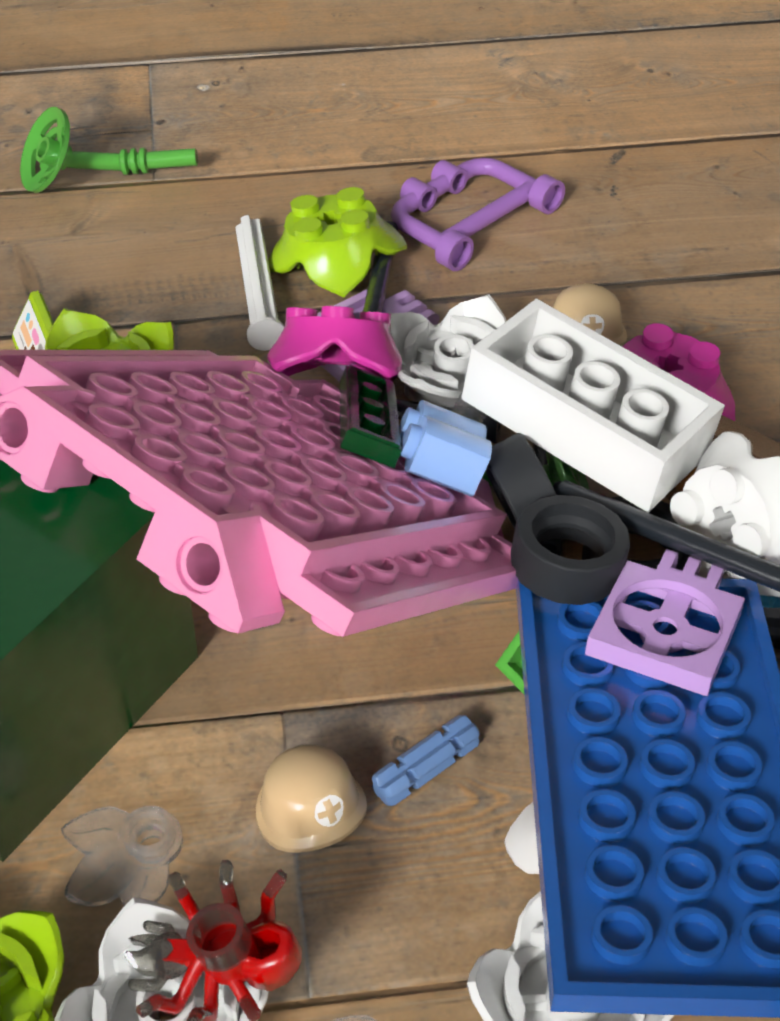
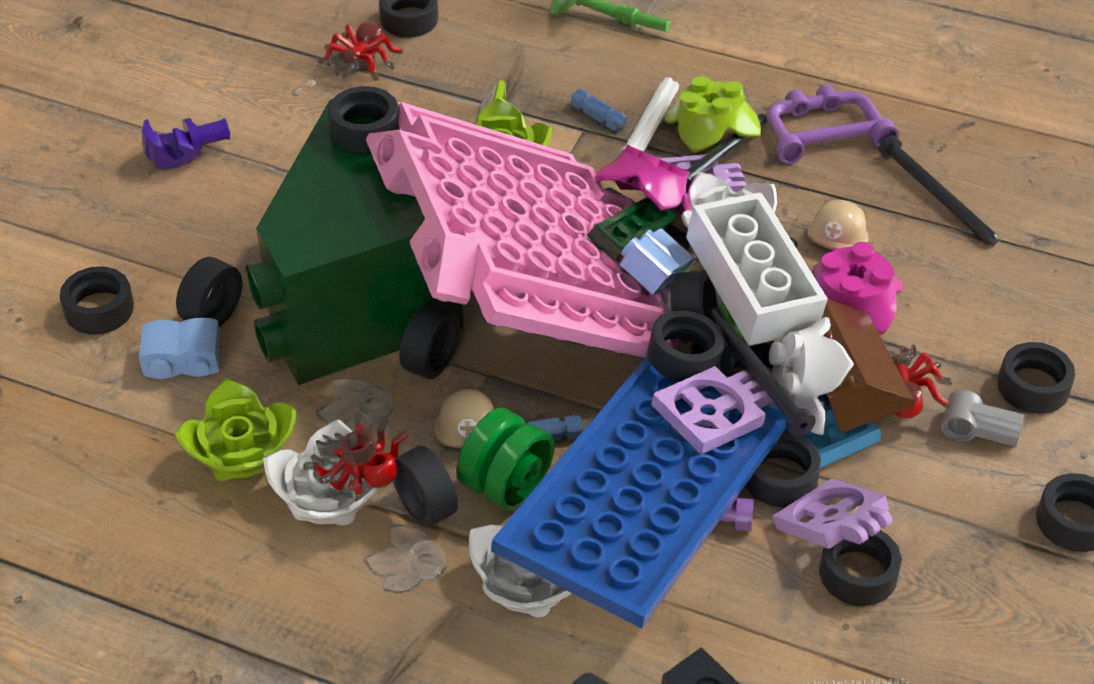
camera: 30 degrees right, 0 degrees up
(179, 288) = (598, 110): none -> medium blue axle
(183, 700) = (429, 341): none -> black tyre
(345, 941) = (425, 486): none -> black tyre
(428, 835) = (504, 458): none -> green wheel
(567, 209) = (891, 148): none -> black bar

